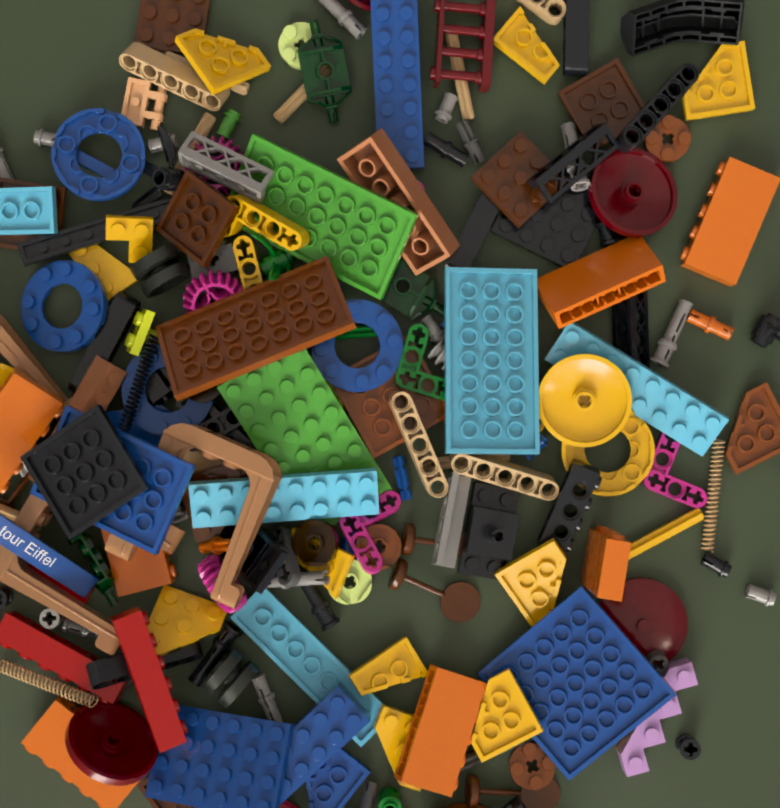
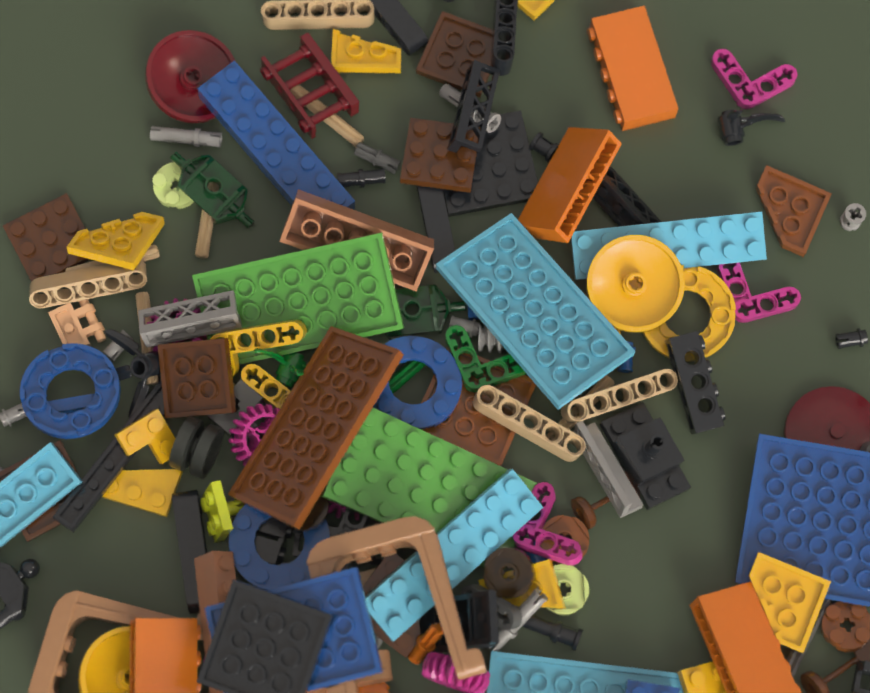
camera: 40 degrees left, 15 degrees down
(93, 306) = (165, 550): blue plate -> none
(146, 360) = (247, 546): black piece -> none
(228, 123) = (162, 288): bright green pin -> none
(390, 667) = (657, 637): yellow wing -> none
(402, 477) = (537, 467): blue axle -> none
(446, 107) = (337, 152): light grey pin -> none
(457, 601) = (668, 535): reddish brown piece -> none
(534, 580) = (717, 462): yellow plate -> none
(605, 563) = (761, 392): orange brick -> none
(633, 193) = (539, 100): dark red dish -> none
(665, 532) = (787, 348): yellow axle -> none
(668, 343) = (663, 195): light grey pin -> none
(680, 139) = (540, 53): dark orange plate -> none
(709, 324) = (683, 156): orange pin -> none
(713, 497) = (800, 287): tan piece -> none

